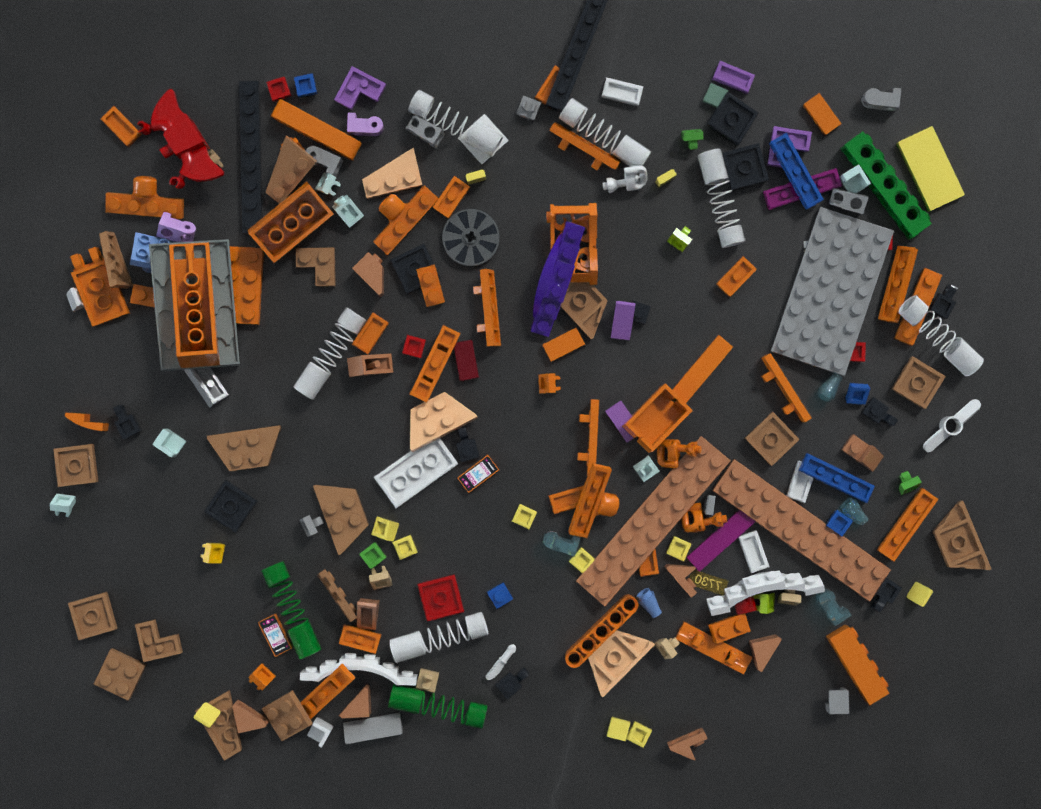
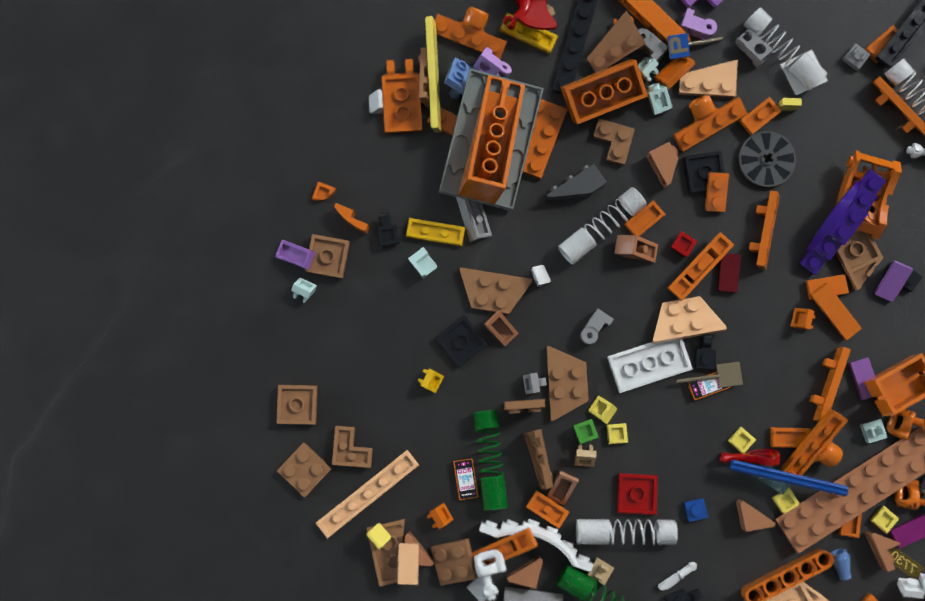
camera: 25 degrees right, 5 degrees down
(43, 473) = (295, 254): none -> medium lavender tile
(51, 403) = (323, 192): none -> orange tile
(119, 256) = (433, 74): none -> light yellow tile
(173, 408) = (435, 232): none -> yellow tile
(187, 678) = (367, 494): none -> light nougat tile
(218, 187) = (539, 39): none -> yellow tile
(242, 731) = (408, 563): none -> light nougat tile
(263, 482) = (501, 328): none -> nougat slope
(286, 419) = (540, 275): none -> white slope
(299, 318) = (582, 185): none -> dark grey slope
(300, 553) = (532, 405): none -> medium nougat plate
(315, 716) = (486, 570): none -> white piece
(350, 152) = (679, 45): none -> piece
(351, 452) = (590, 331): none -> light grey leg
(355, 177) = (674, 71): none -> orange tile
(492, 458) = (728, 375): none -> dark tan piece
(544, 527) = (761, 456): none -> red piece
(554, 587) = (752, 519): none -> nougat slope
(573, 540) = (789, 478): none -> blue axle
(577, 366) = (835, 311): none -> orange tile

